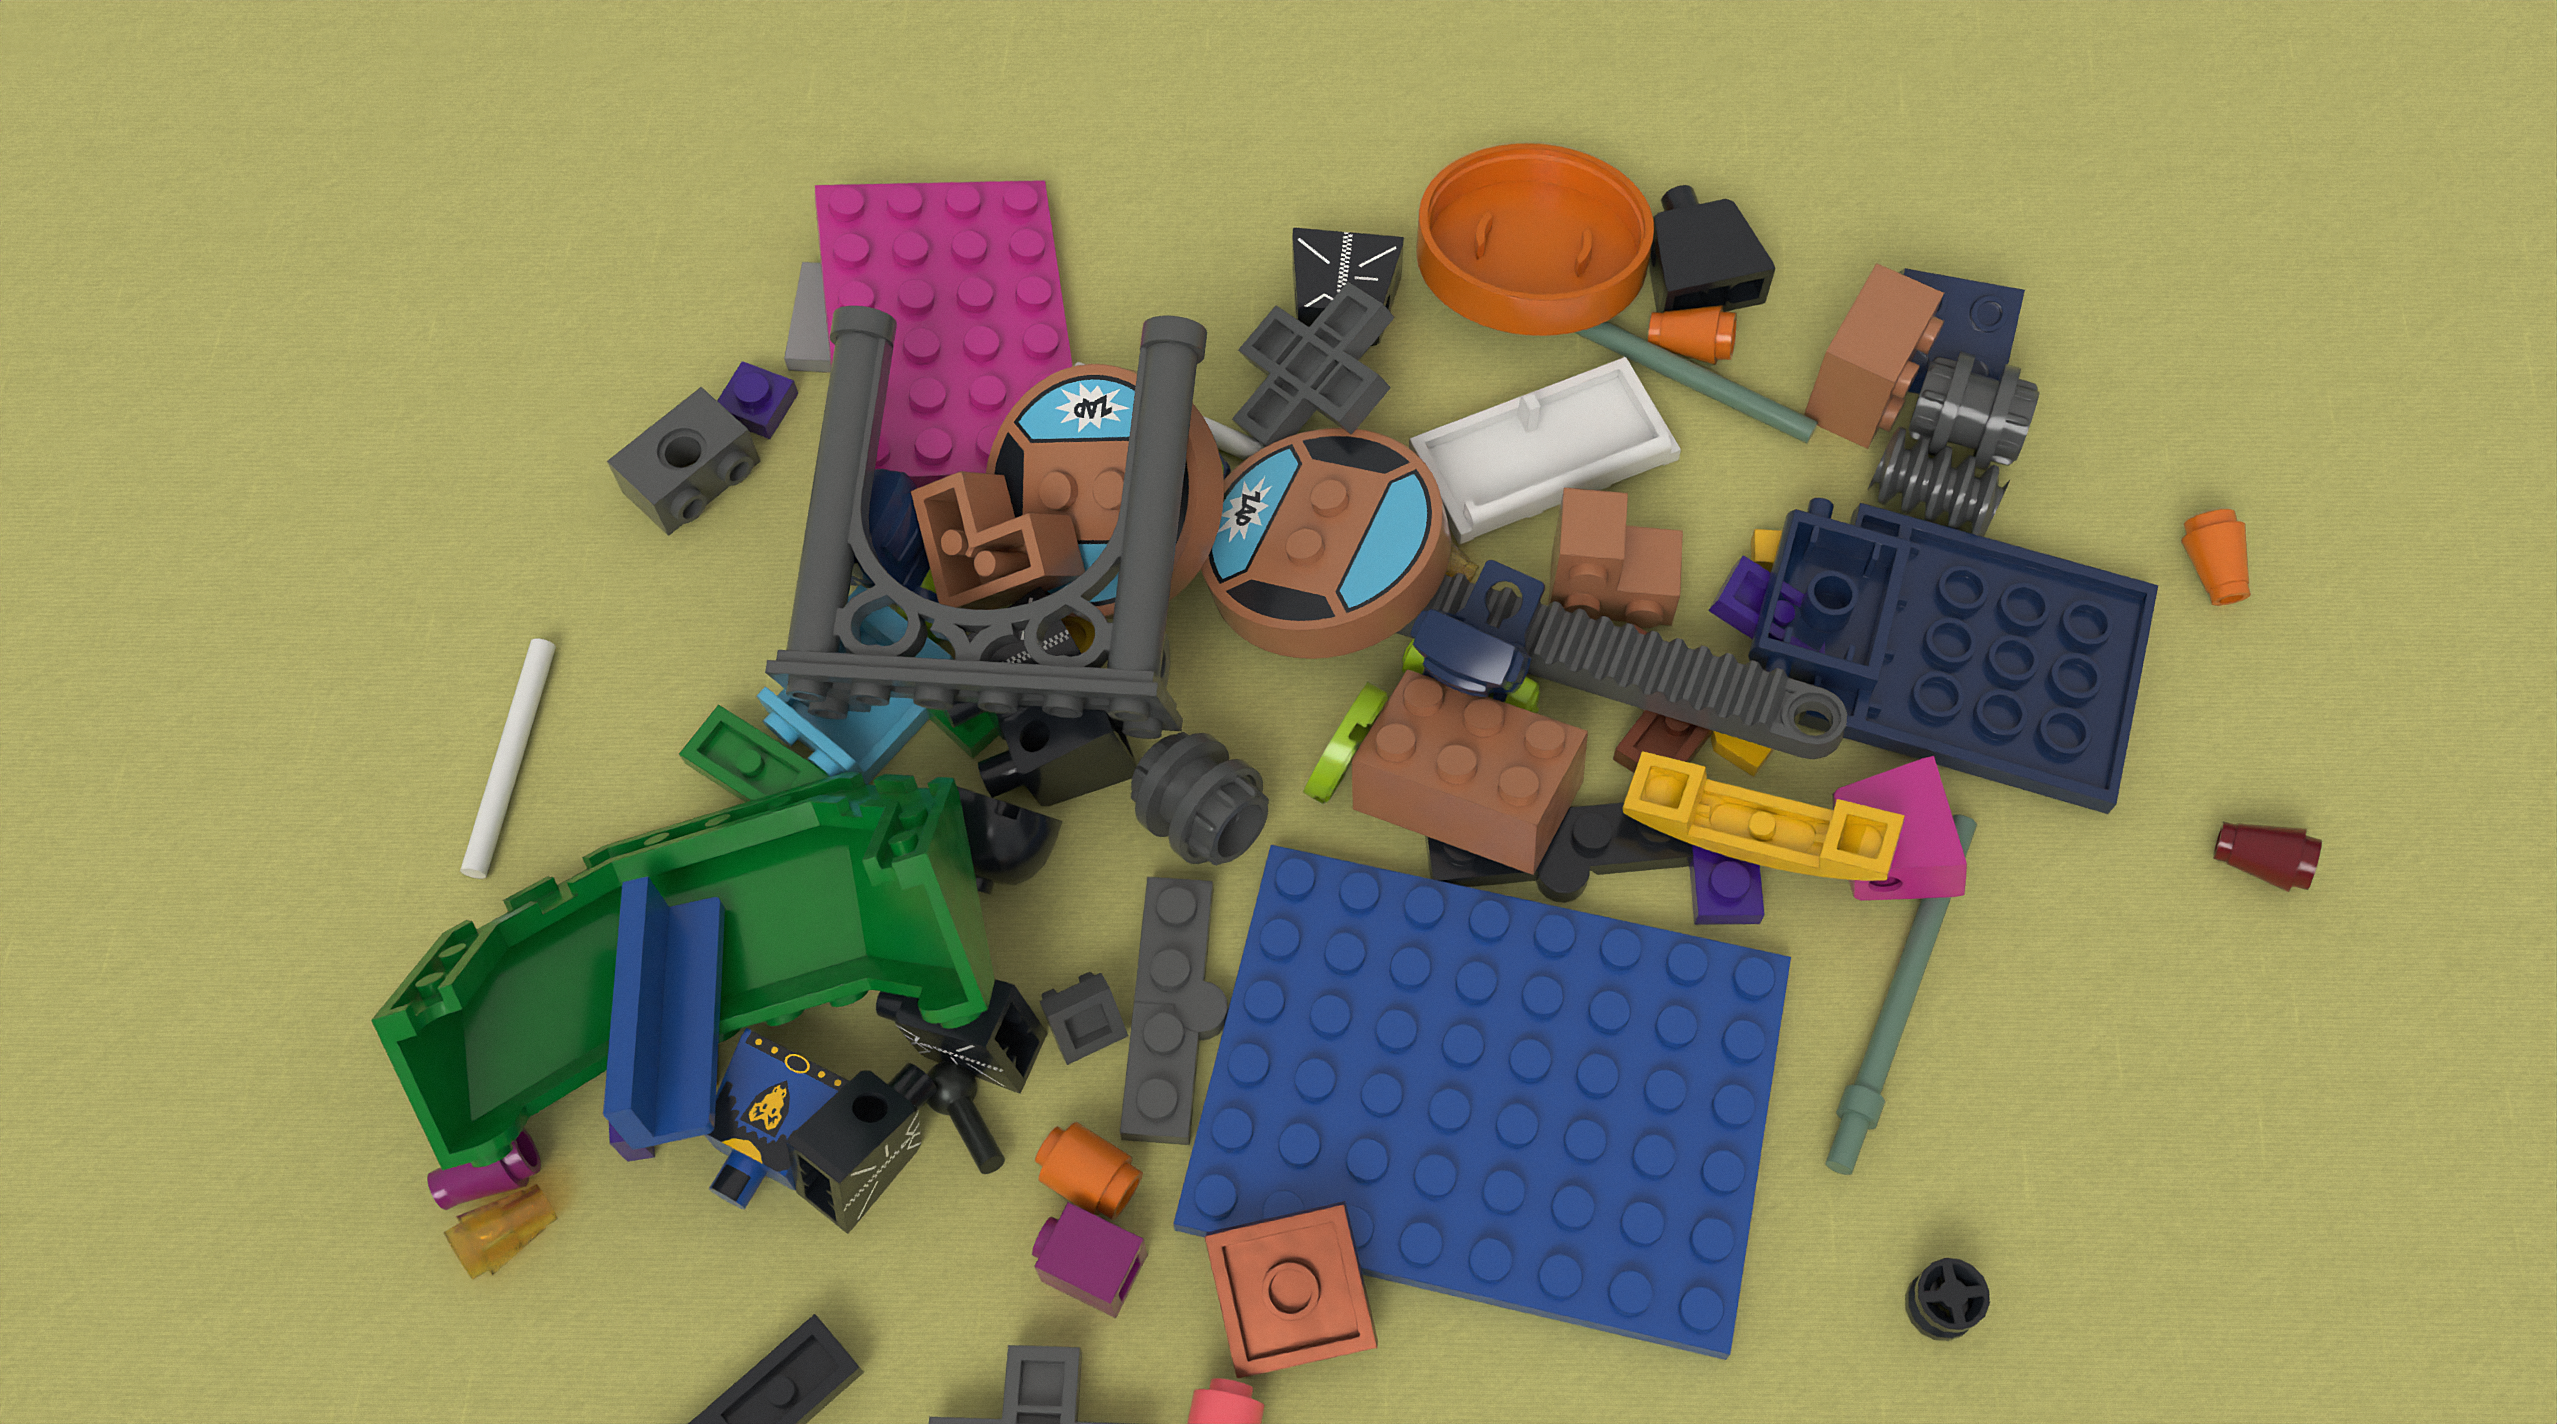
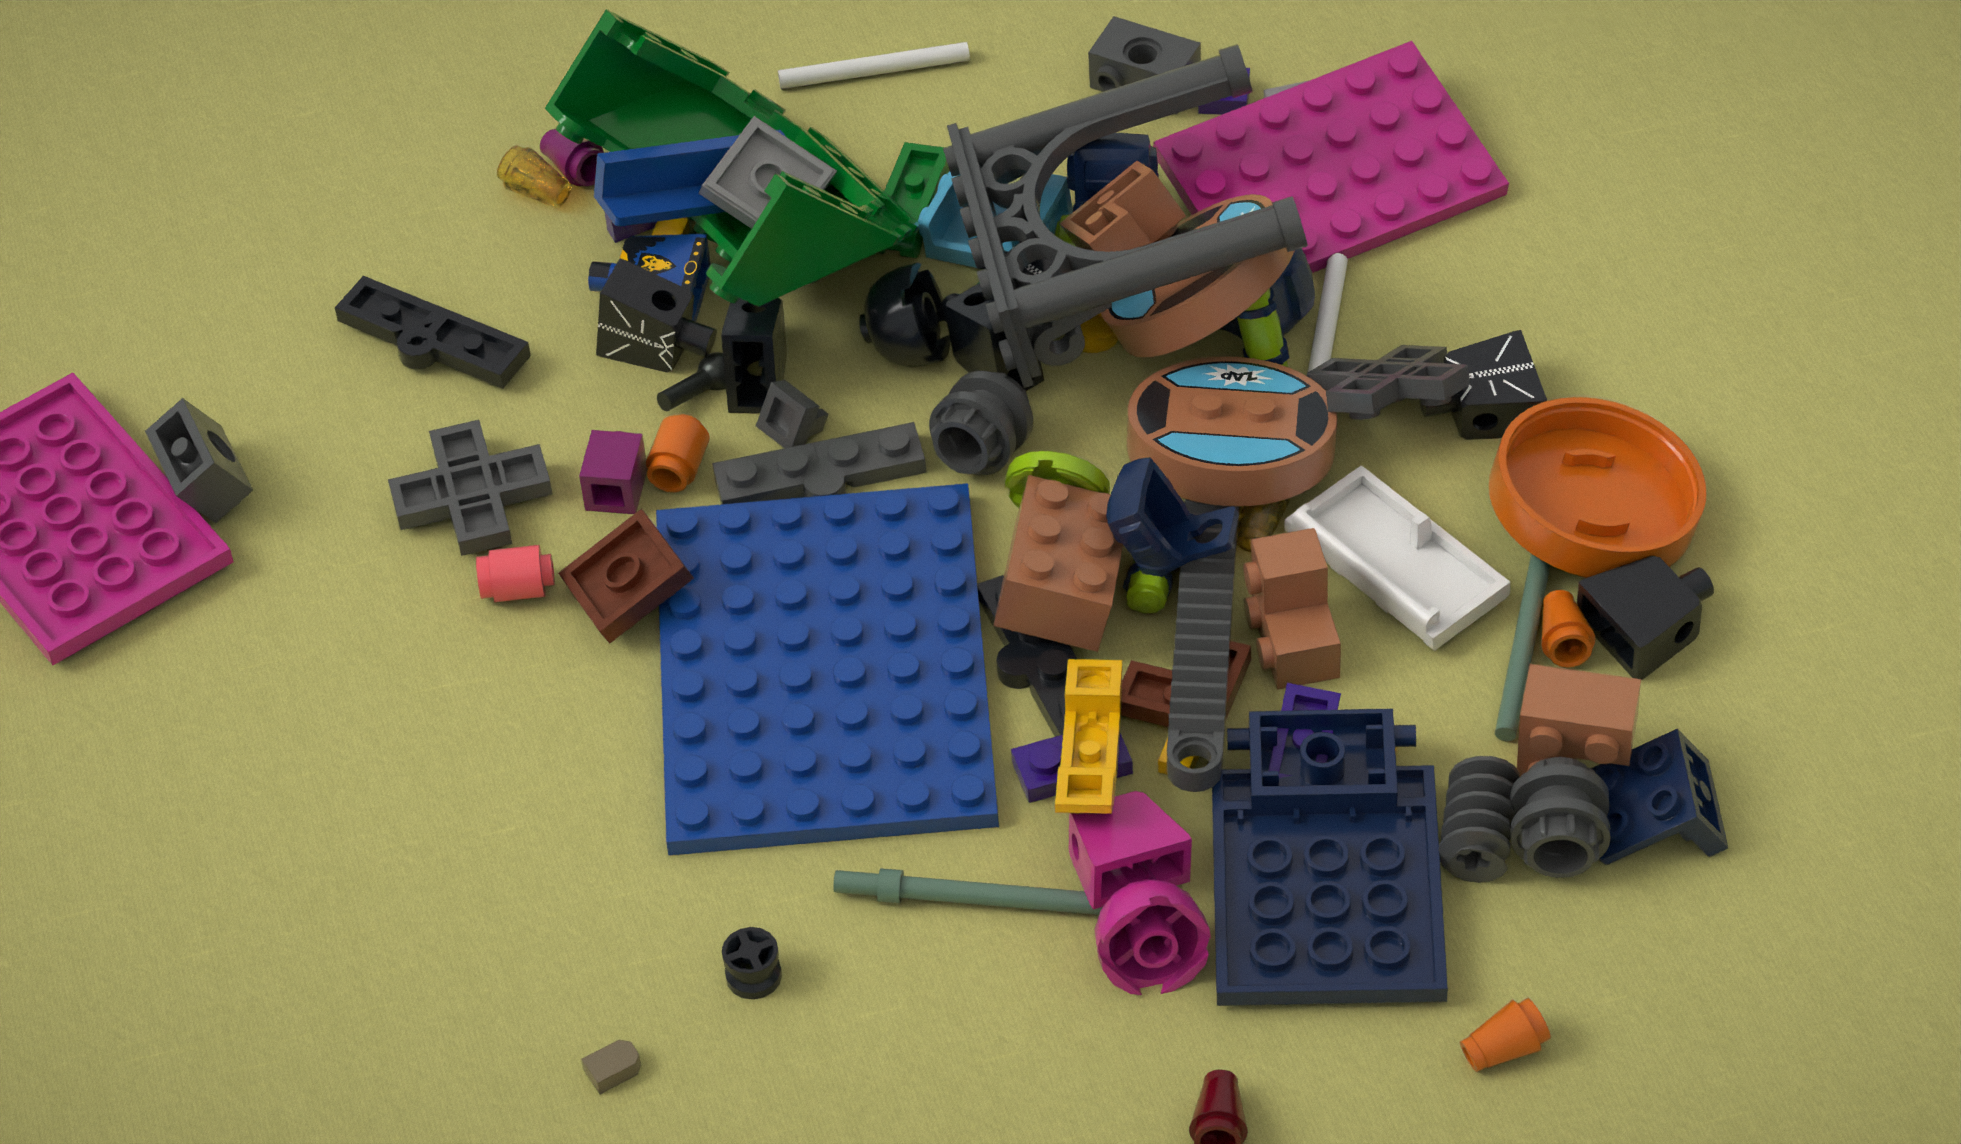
camera: 75 degrees right, 15 degrees down
(714, 922) = (749, 166): none -> light grey plate
(2023, 844) = (1151, 937): none -> dark pink cylinder

